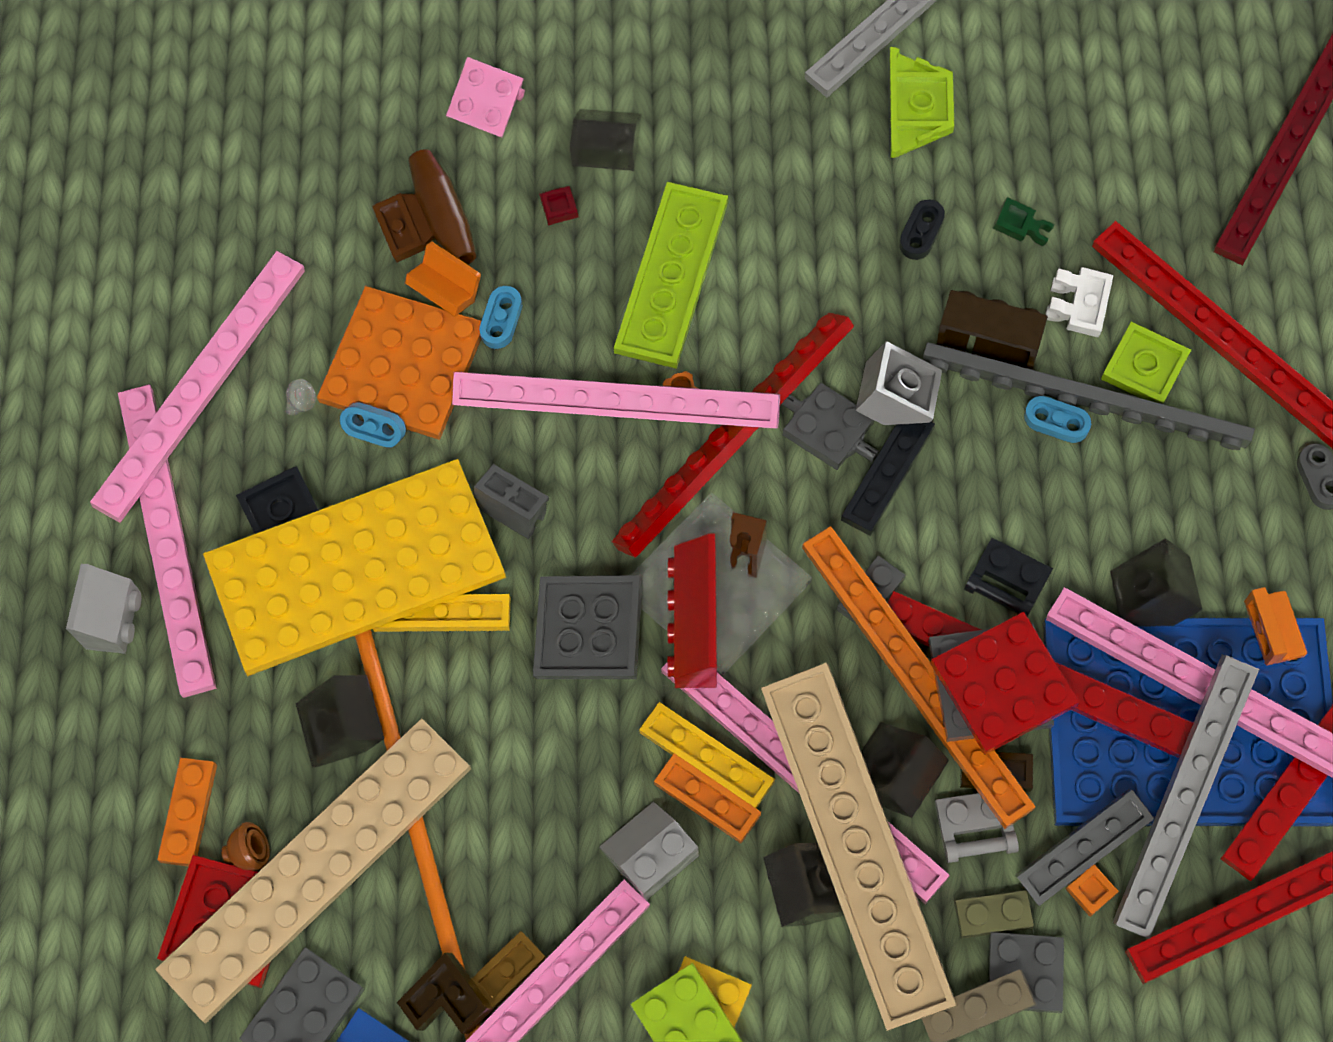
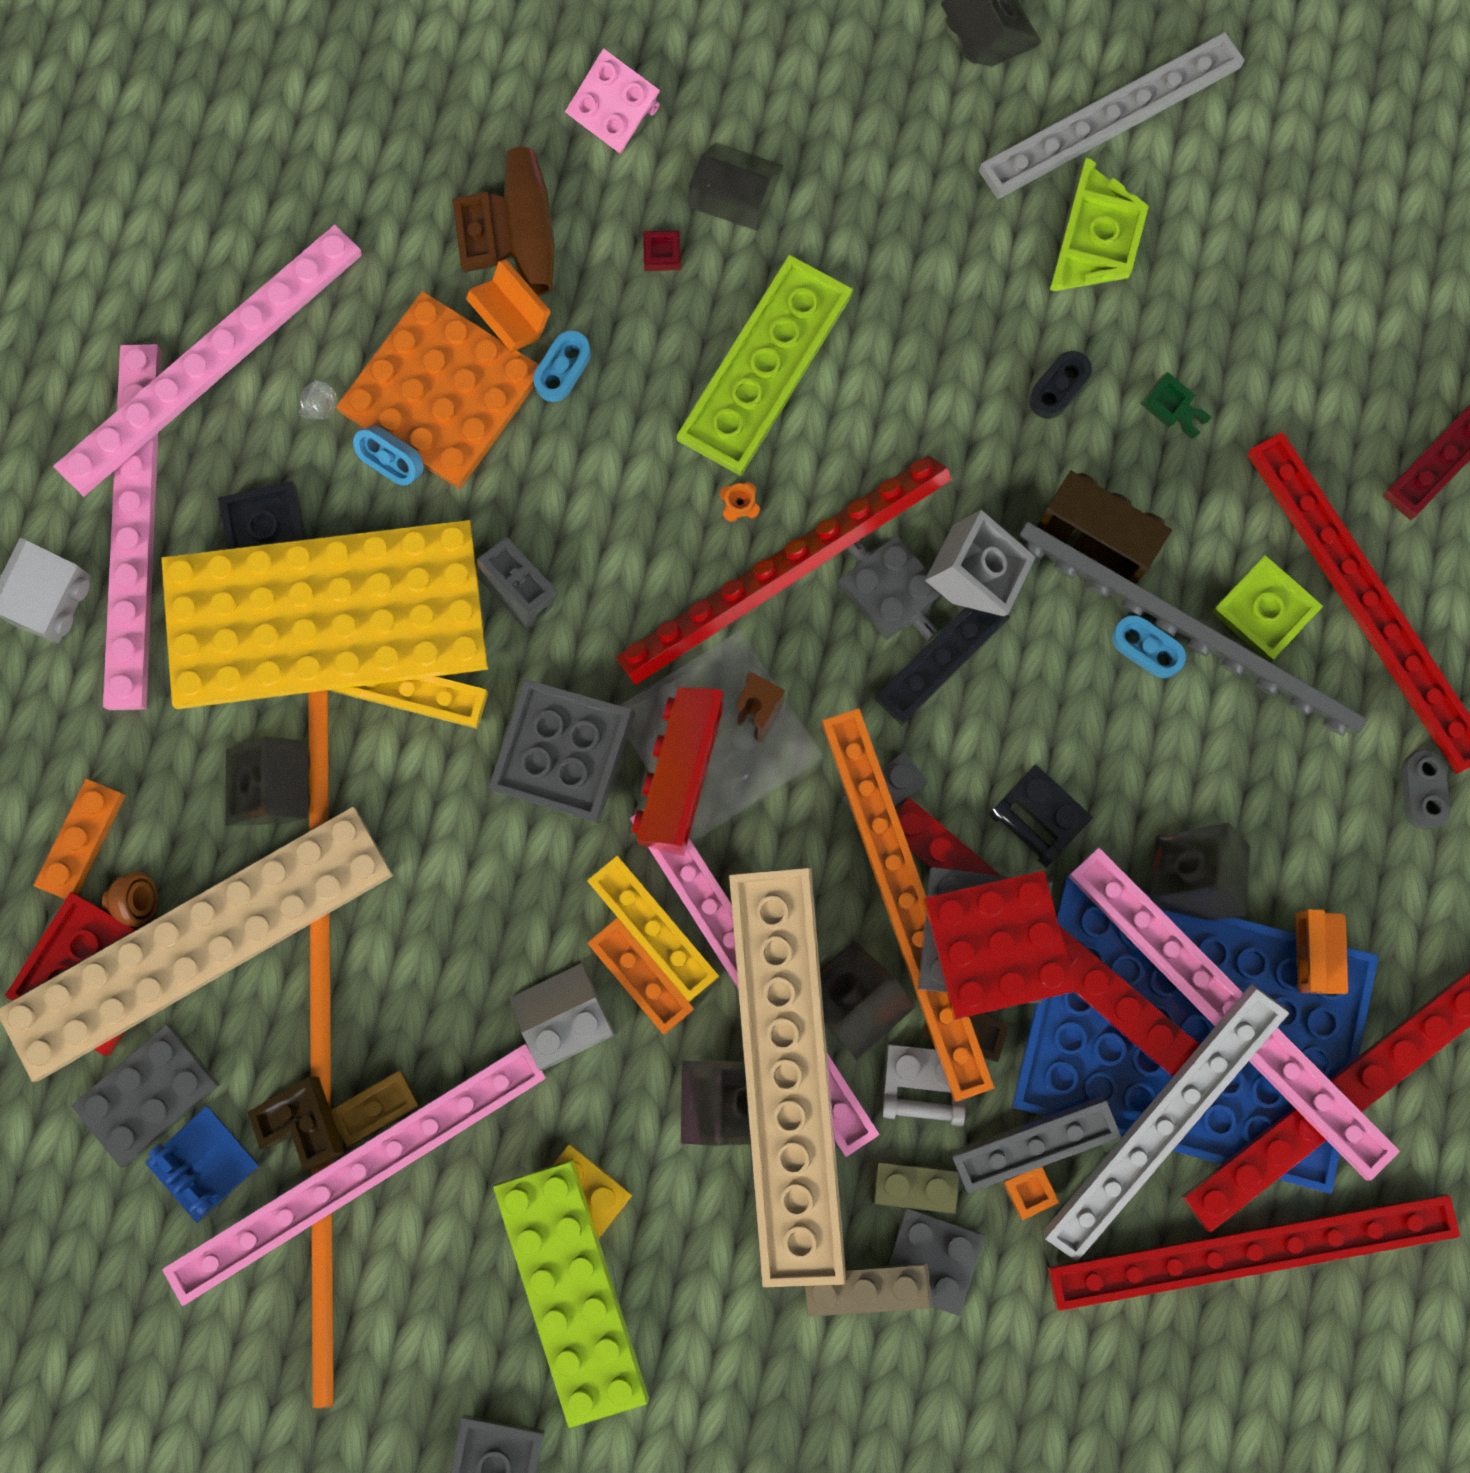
camera: 10 degrees right, 10 degrees up
(617, 399) = (663, 499): bright pink plate -> none
(1089, 300) = (1224, 519): white plate -> none

